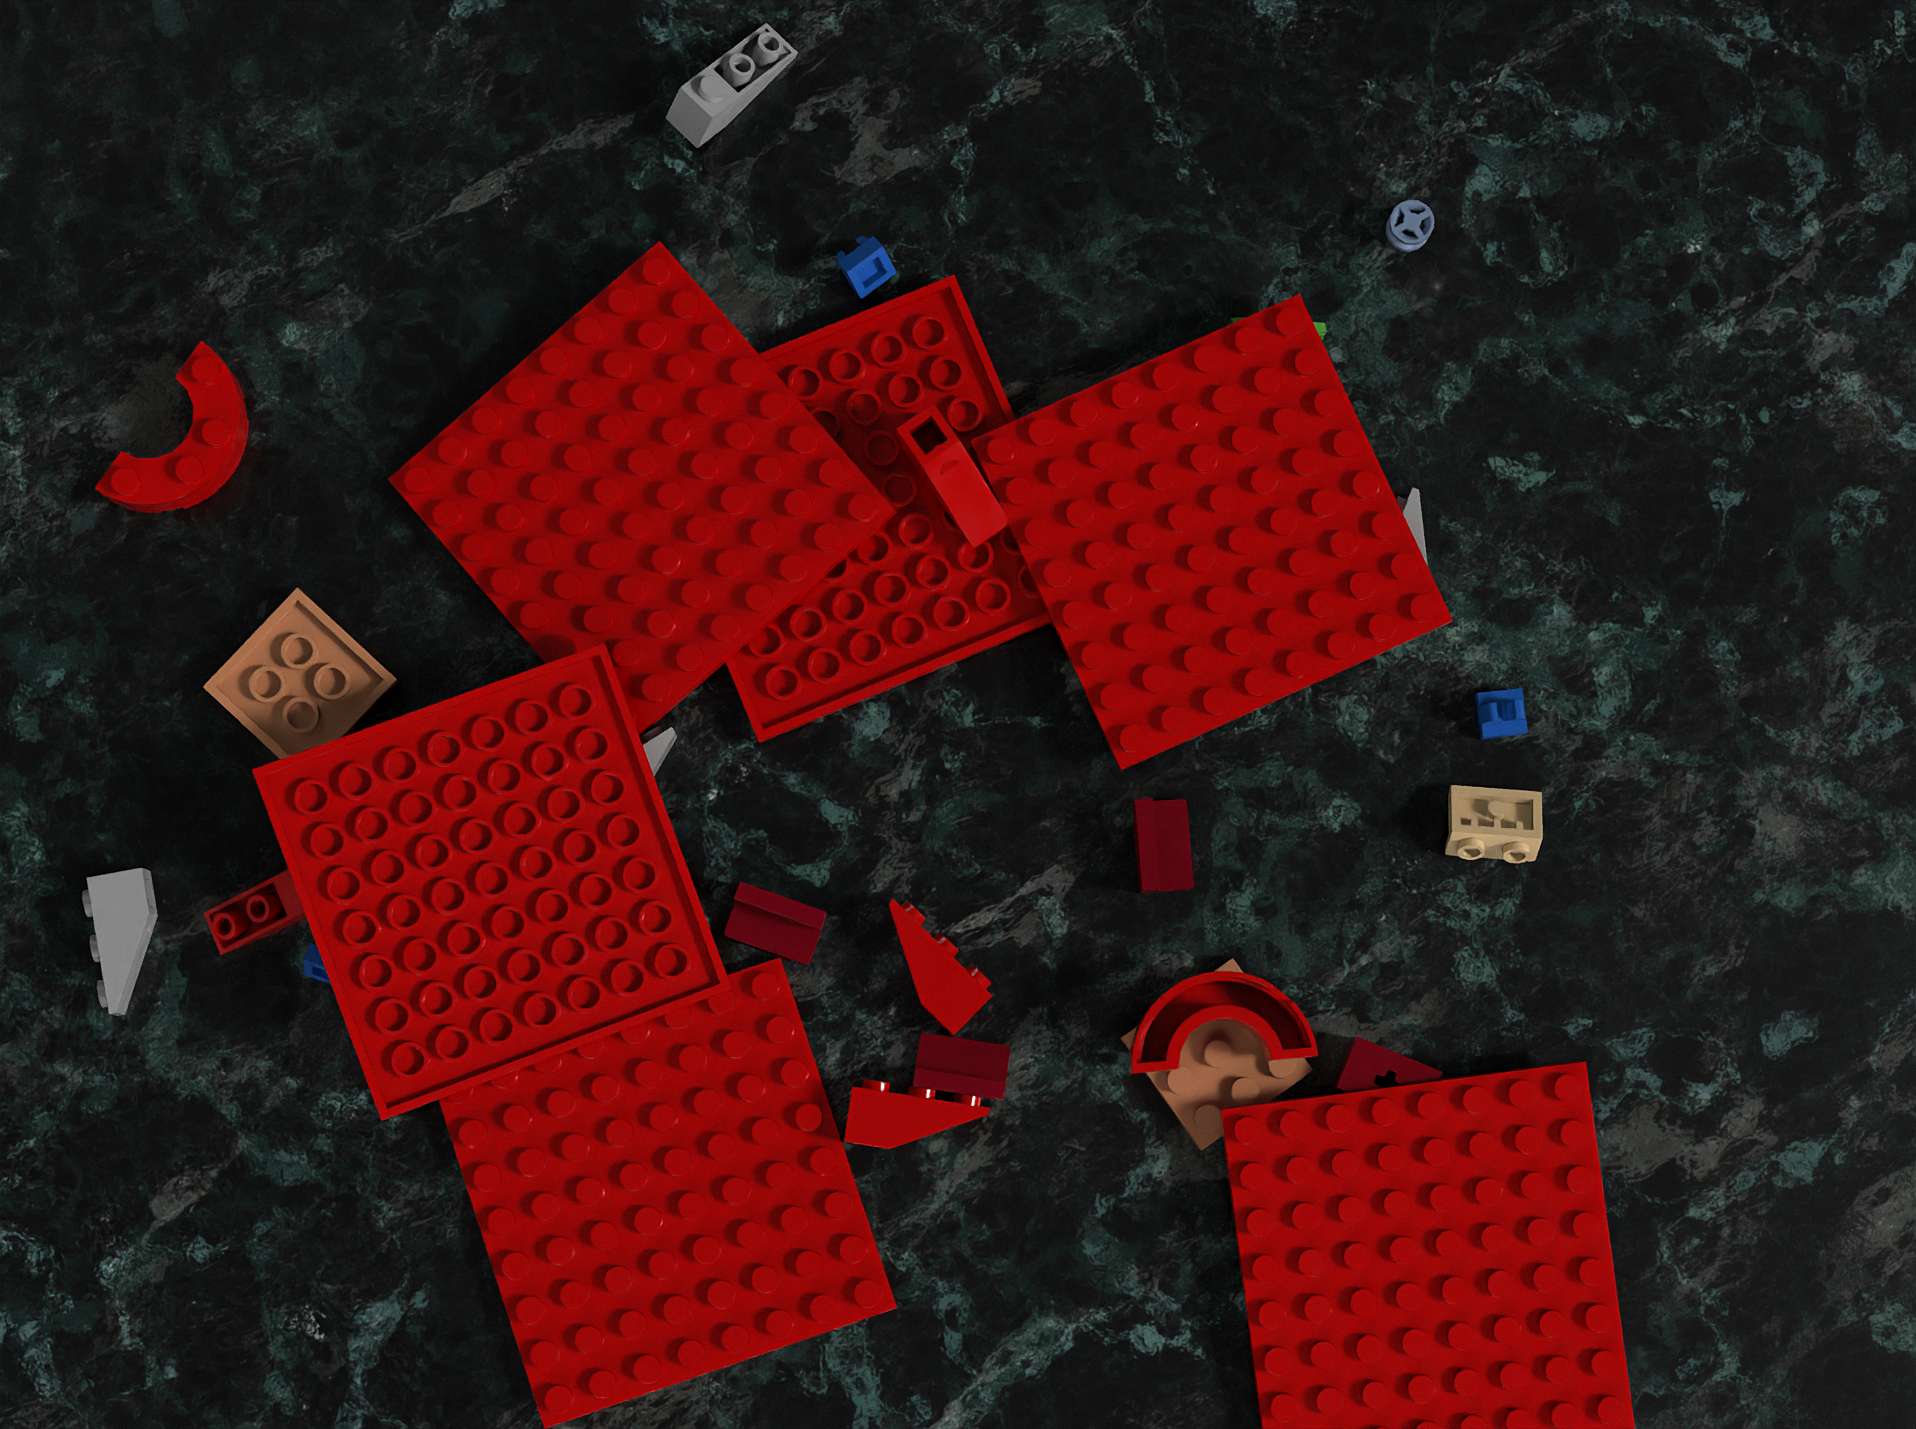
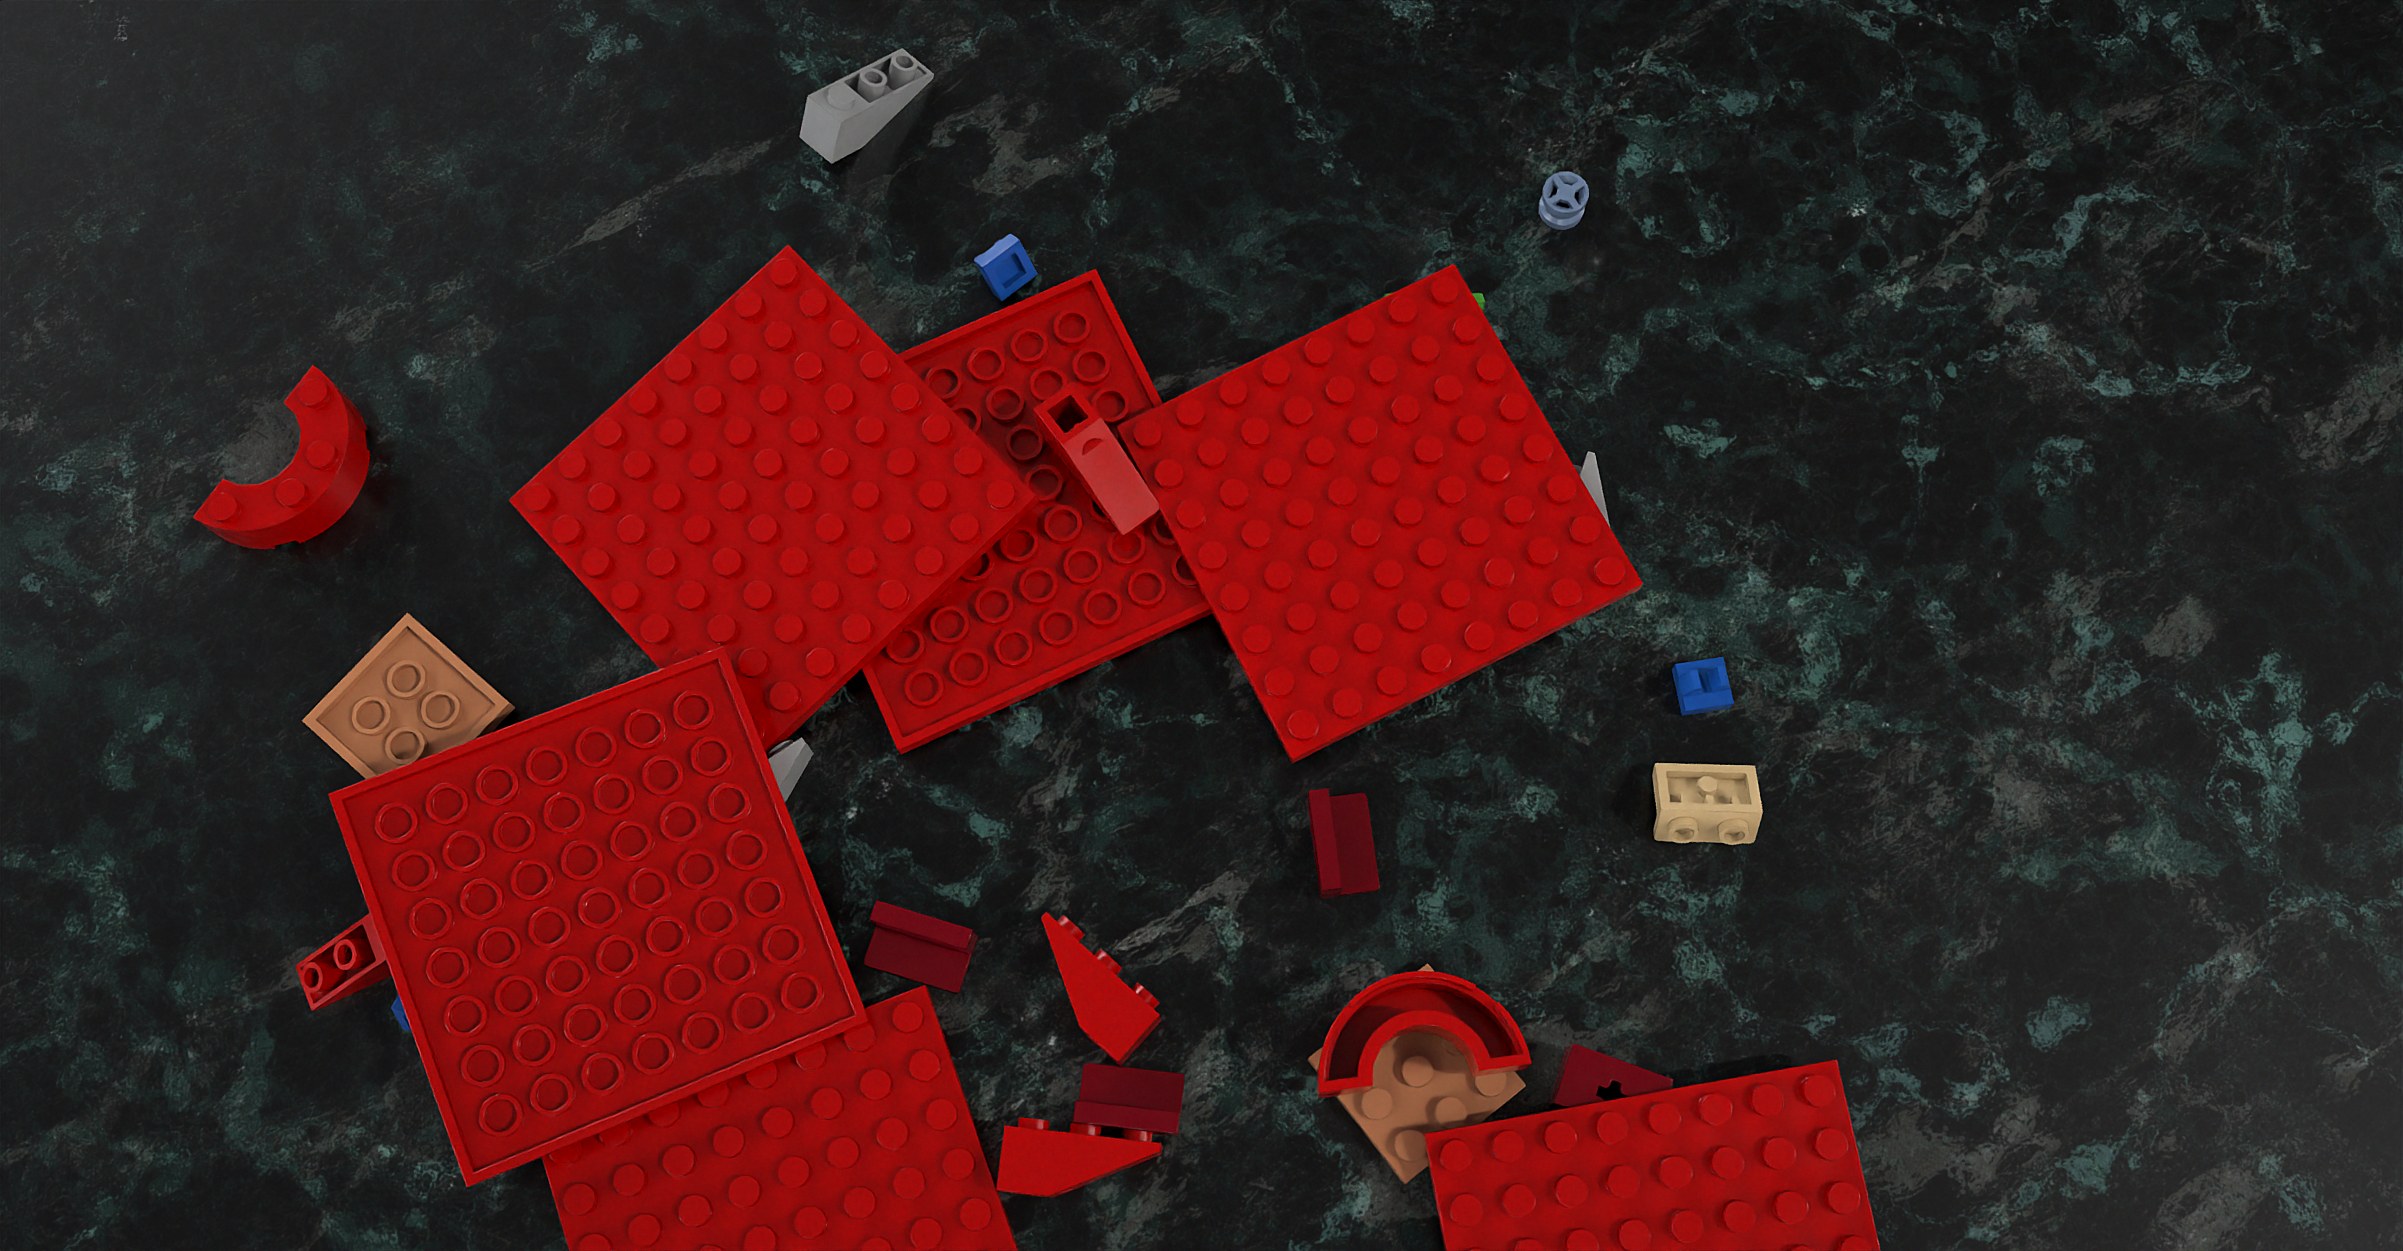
camera: 10 degrees right, 10 degrees down
(123, 923) = (202, 979): light grey slope -> none

